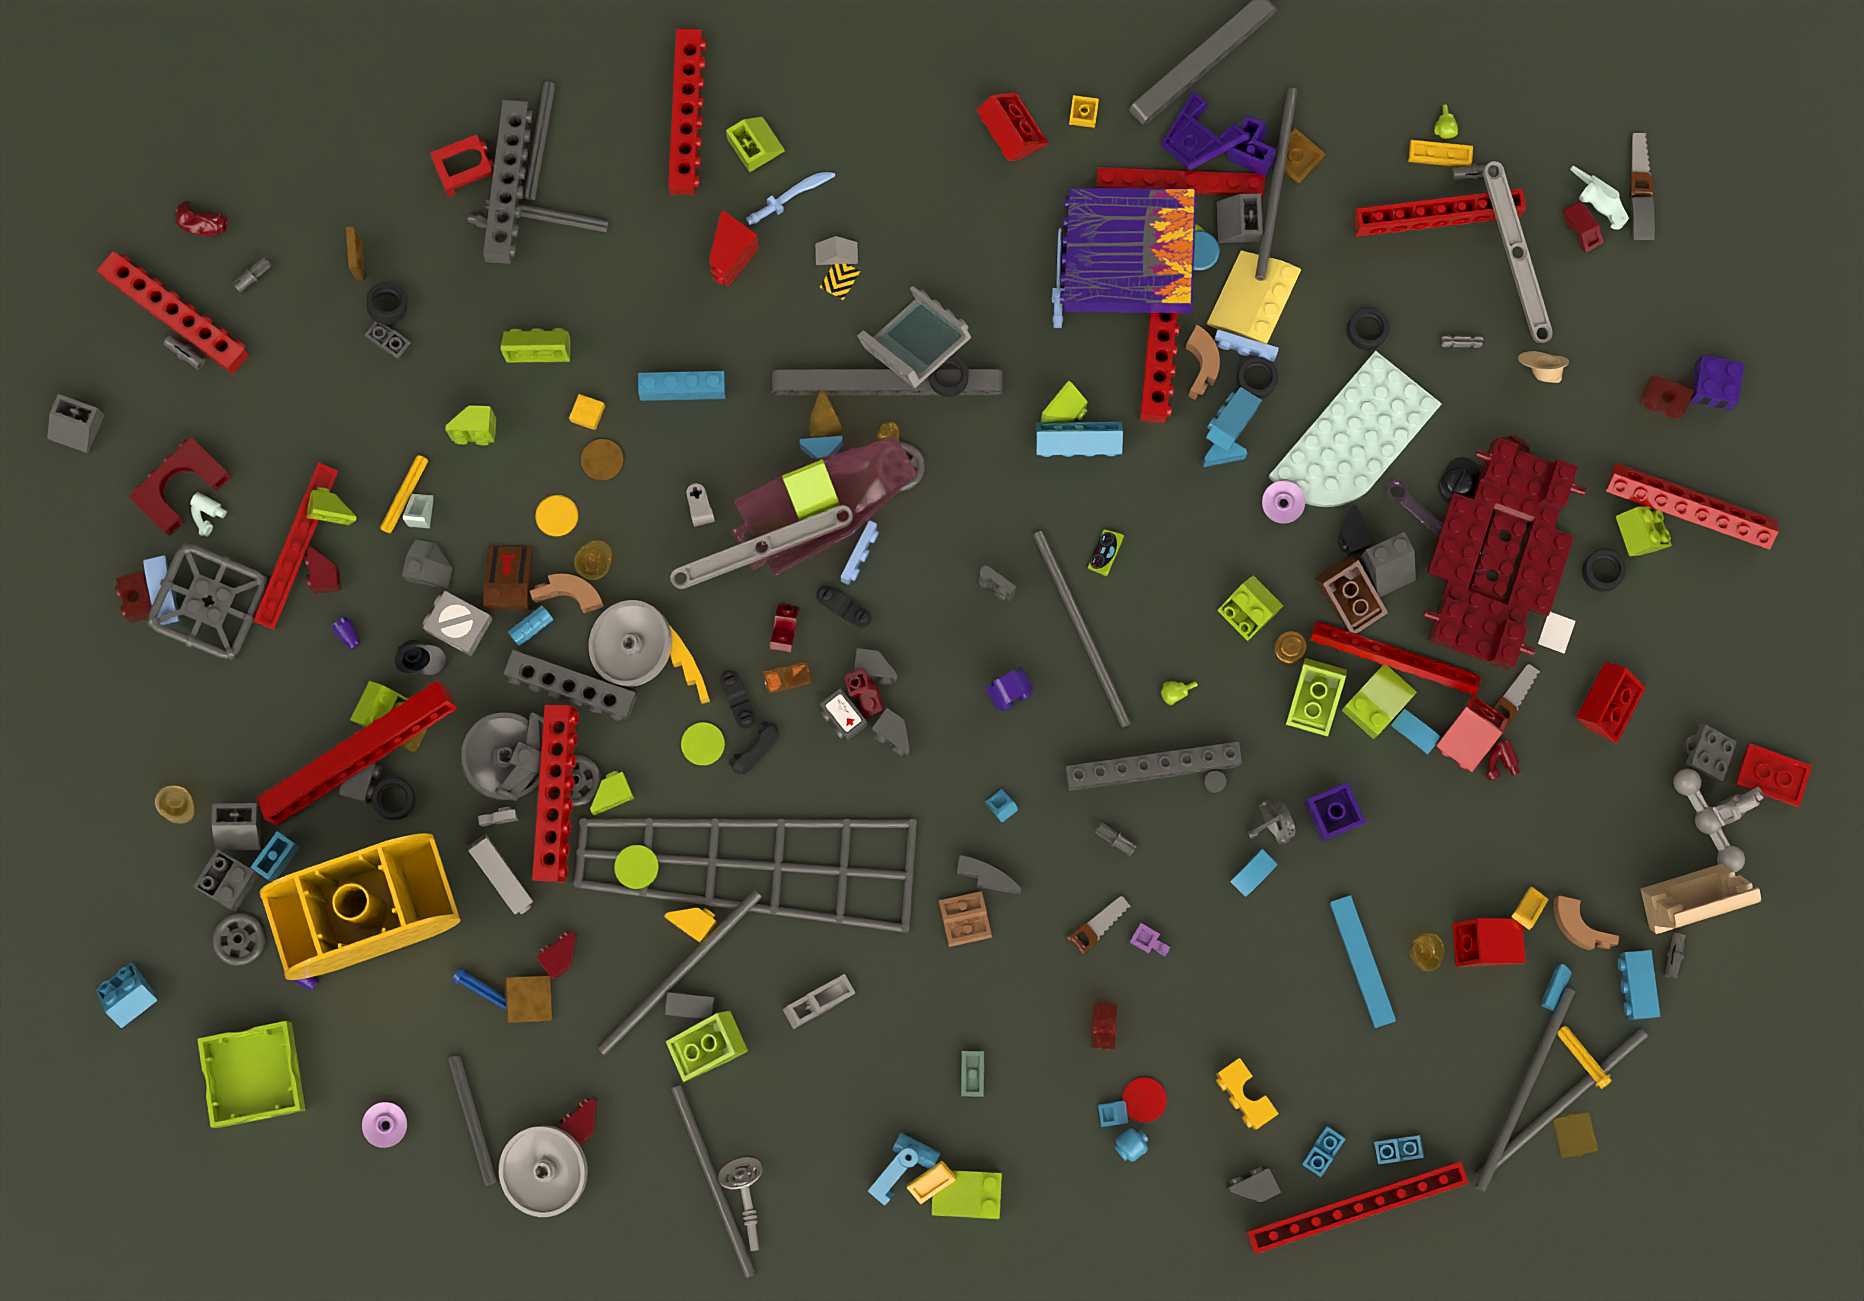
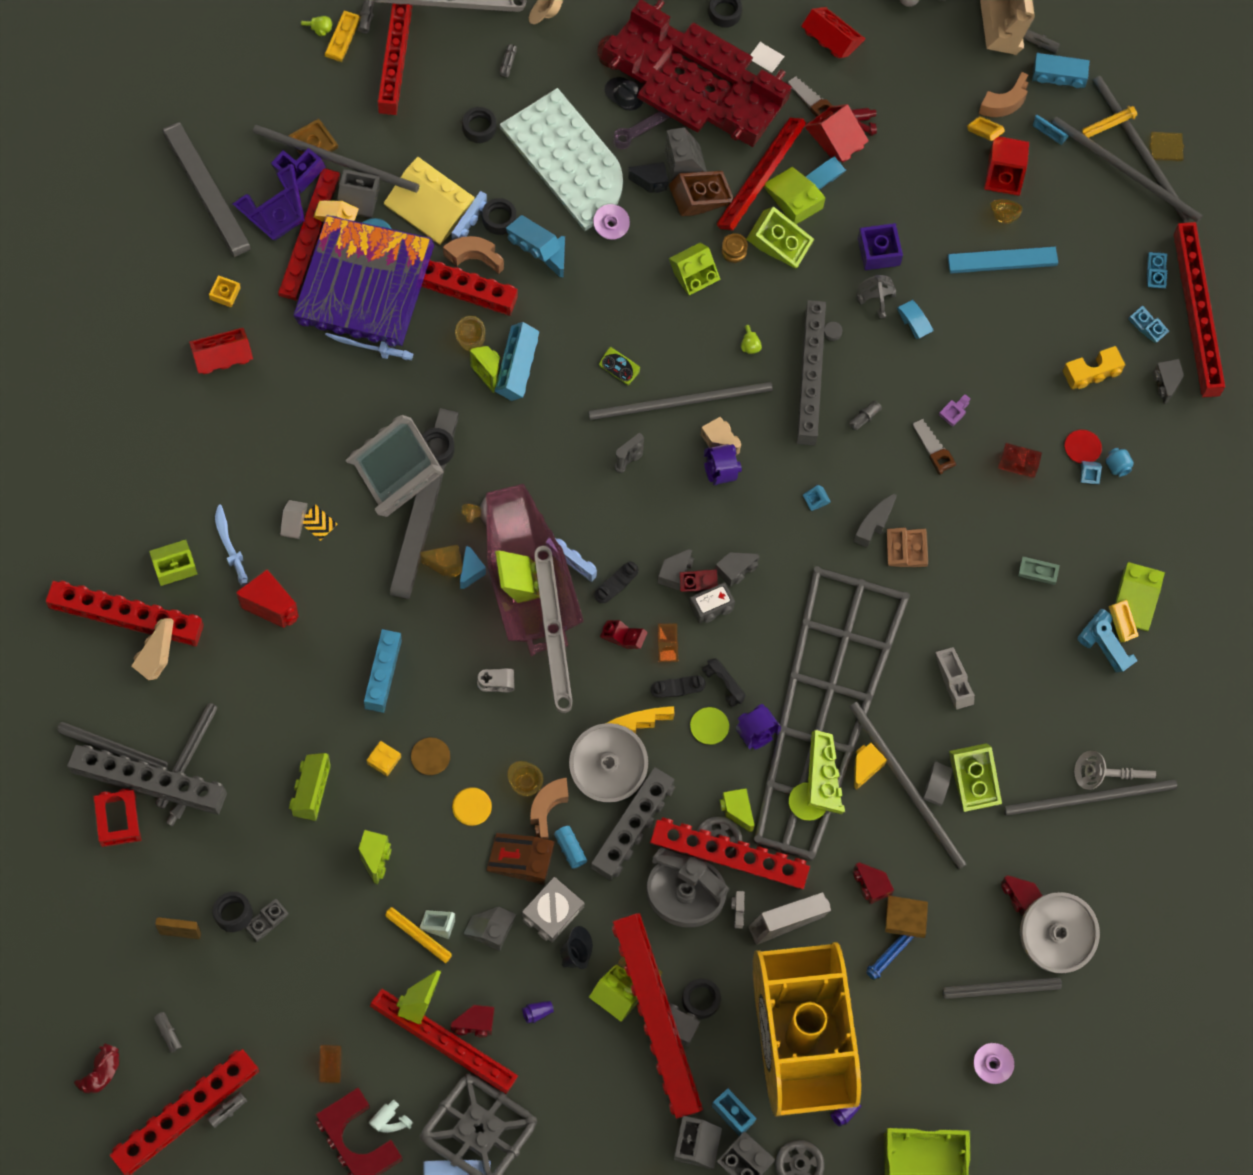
camera: 80 degrees left, 10 degrees down
(250, 439) = (330, 1063): none -> clear orange slope
(644, 152) = (155, 653): none -> tan slope
(660, 877) = (823, 775): none -> lime wing
(706, 793) = (757, 727): none -> dark purple brick
(1046, 680) = (719, 433): none -> tan slope
(1100, 380) = (470, 332): none -> clear yellow piece
(1207, 200) = (336, 209): none -> yellow slope

